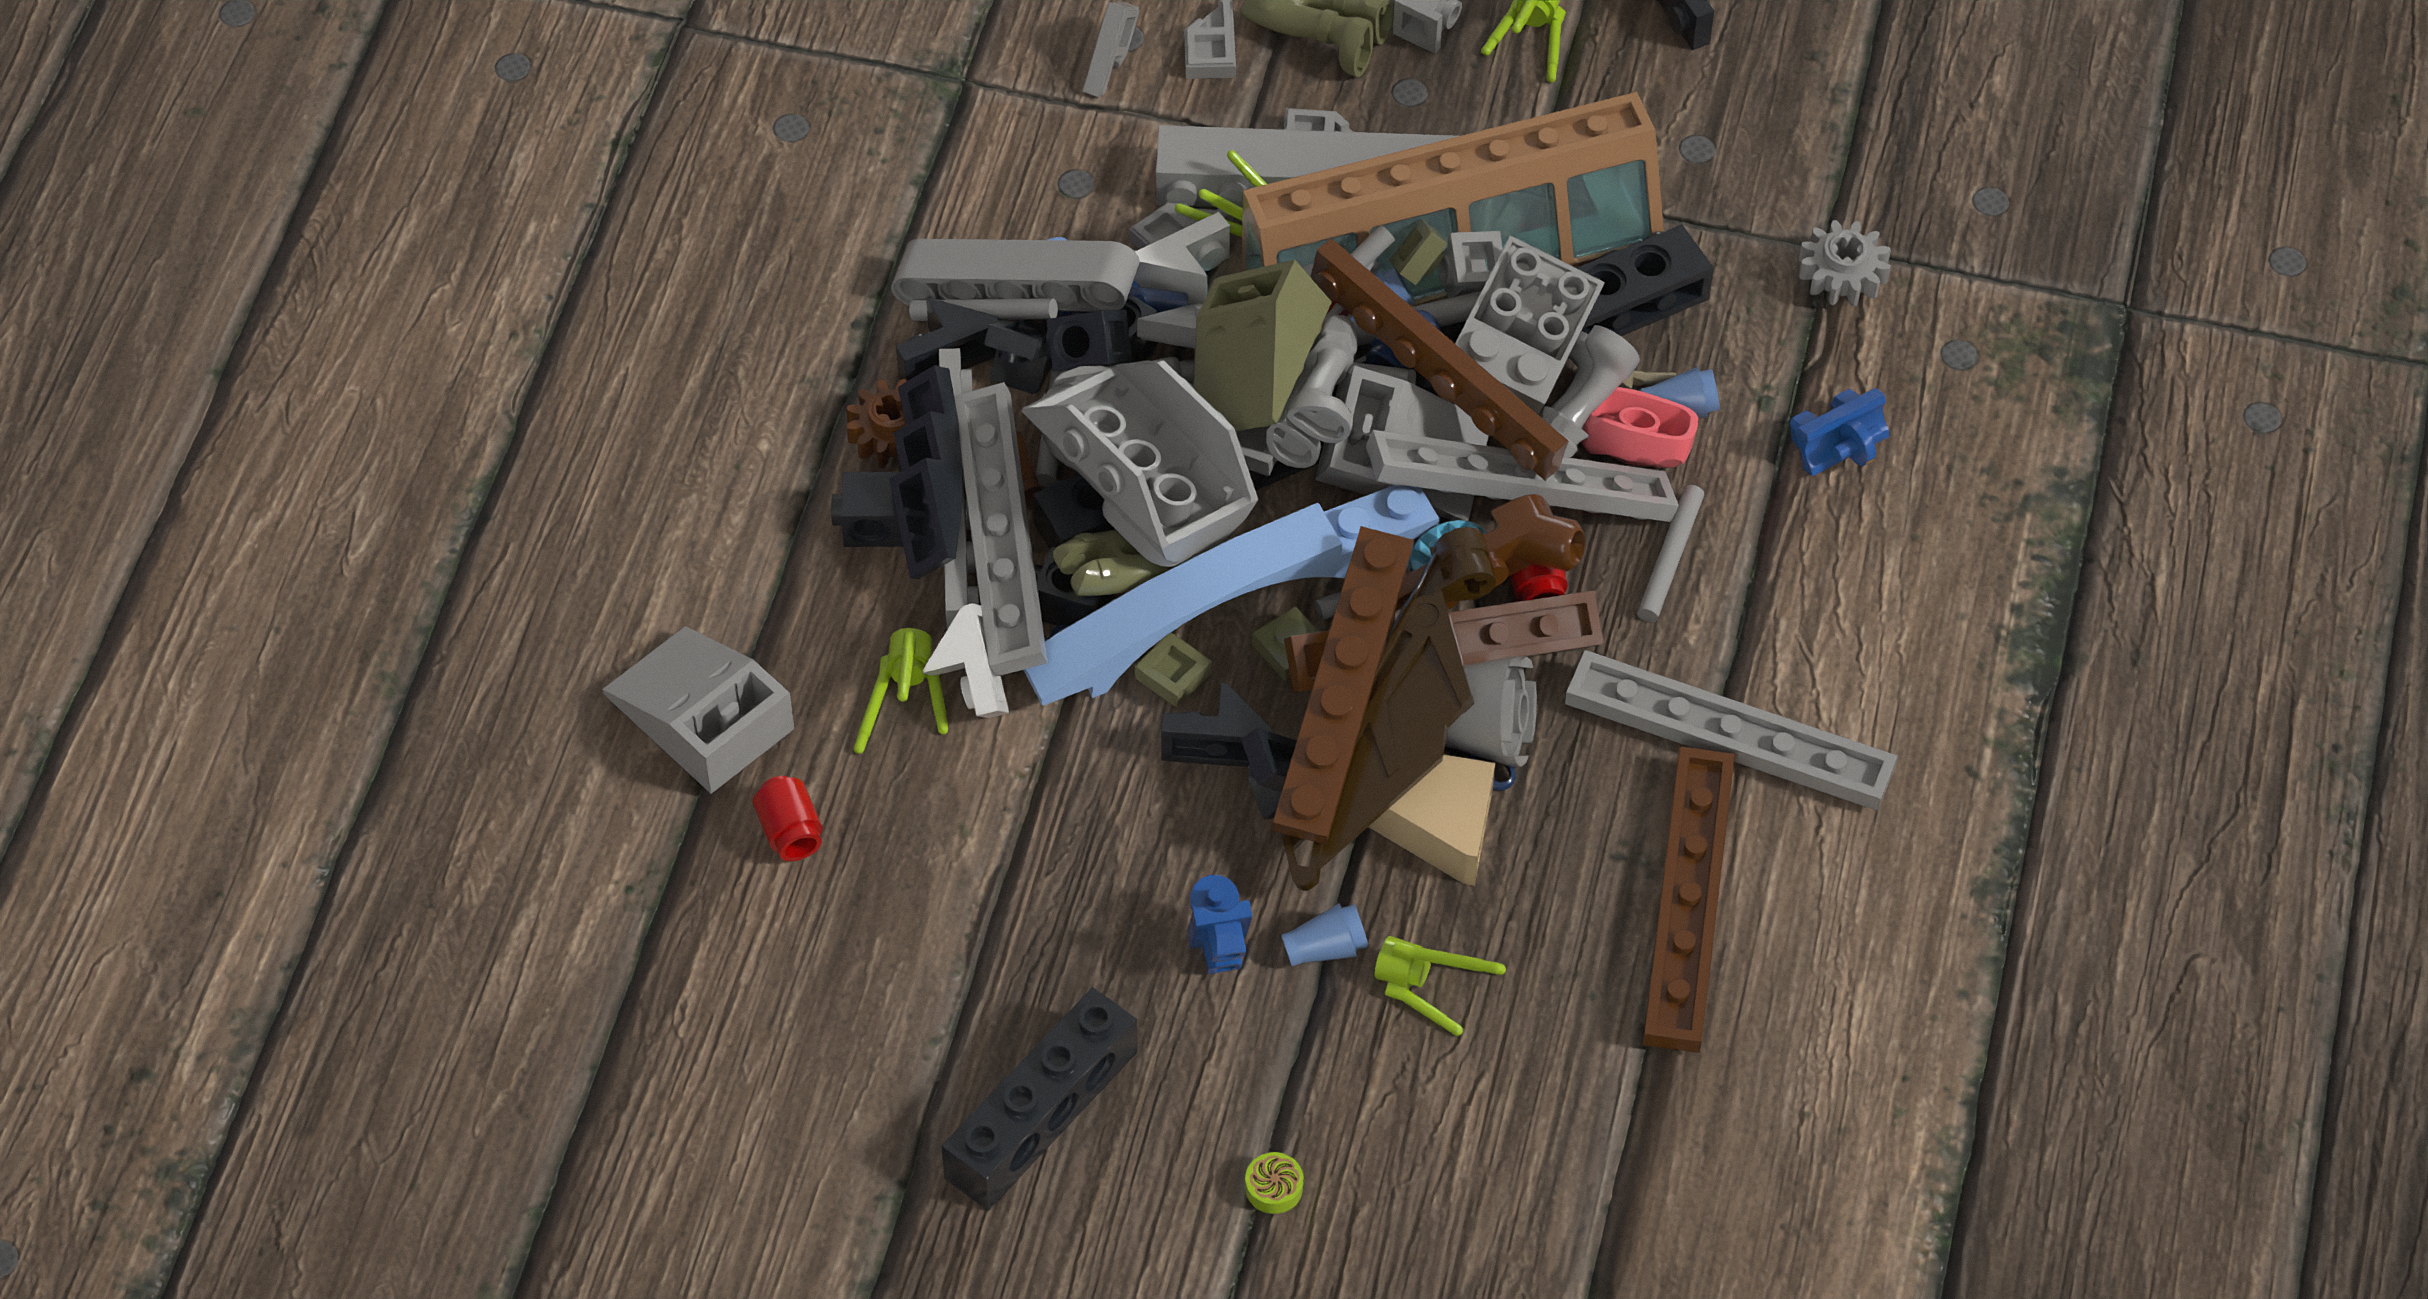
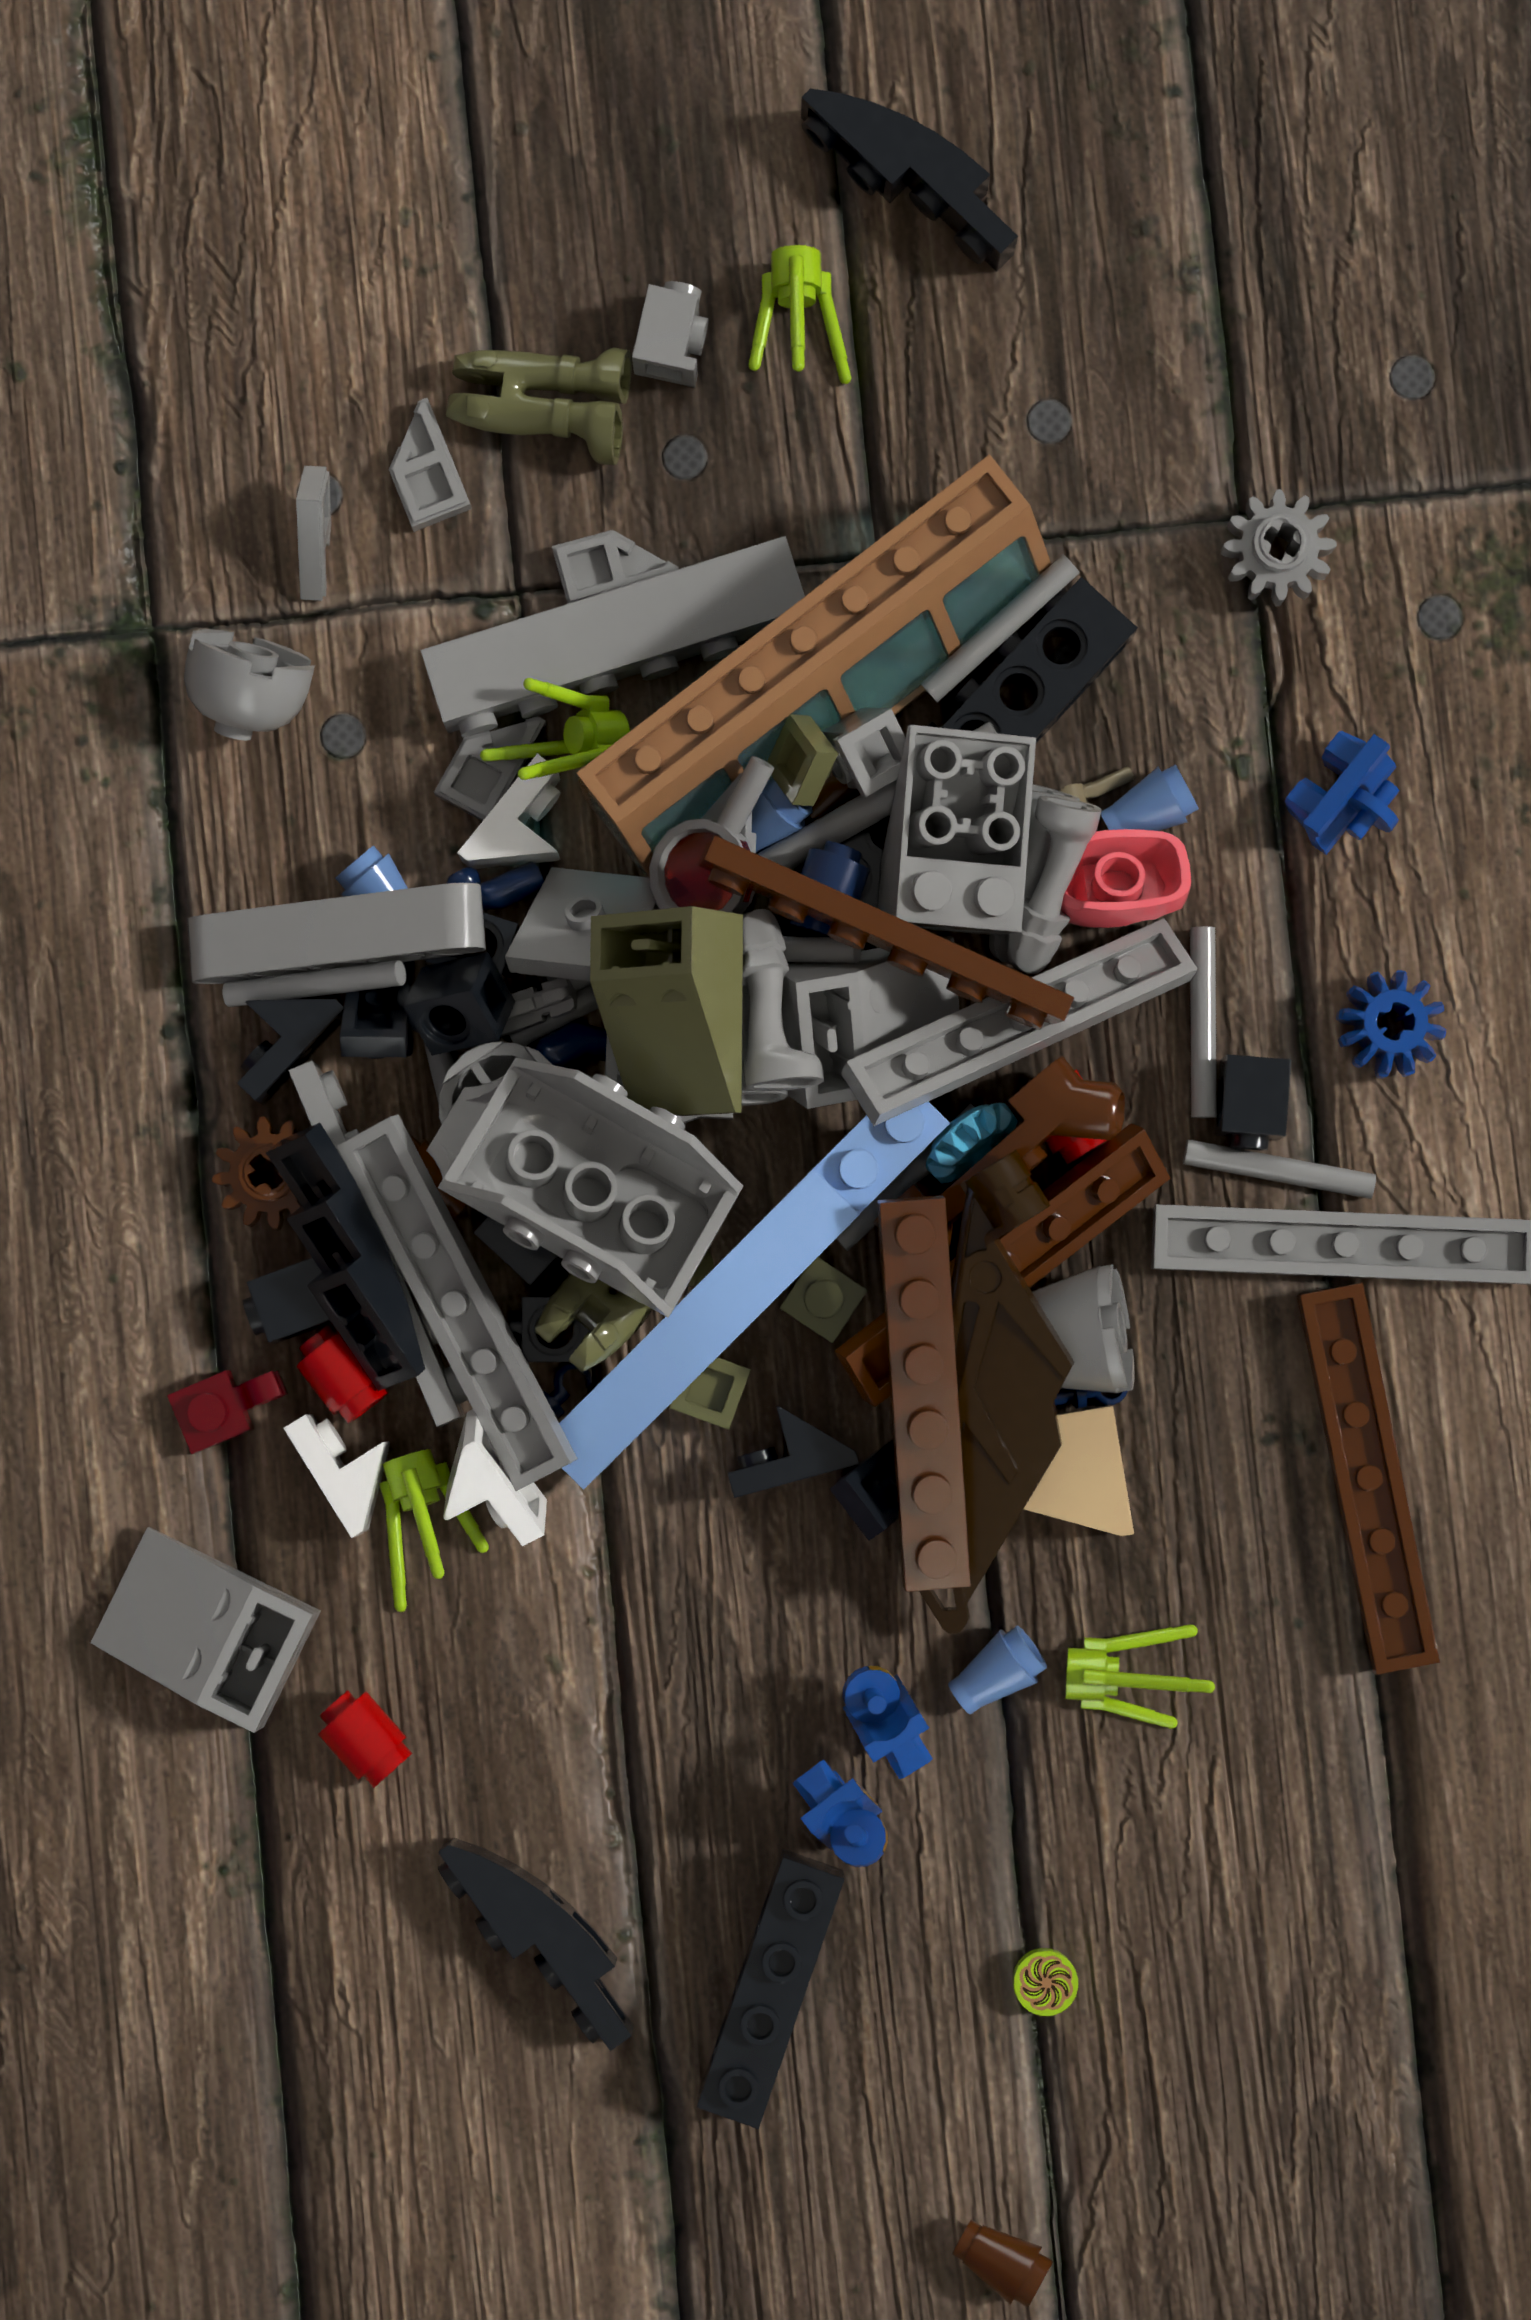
camera: 20 degrees left, 30 degrees up
(779, 567) = (218, 1408): none -> dark red plate
(858, 635) = (348, 1487): none -> white slope
(869, 995) = (526, 1912): none -> black slope
(885, 569) = (338, 1376): none -> red brick
(1018, 113) = (245, 683): none -> light grey cylinder
(1153, 976) = (842, 1816): none -> blue hips
(1619, 235) = (1000, 627): none -> light grey bar
(1690, 605) = (1252, 1100): none -> black brick
(1695, 668) = (1279, 1169): none -> light grey bar
(1822, 590) = (1402, 1045): none -> blue gear

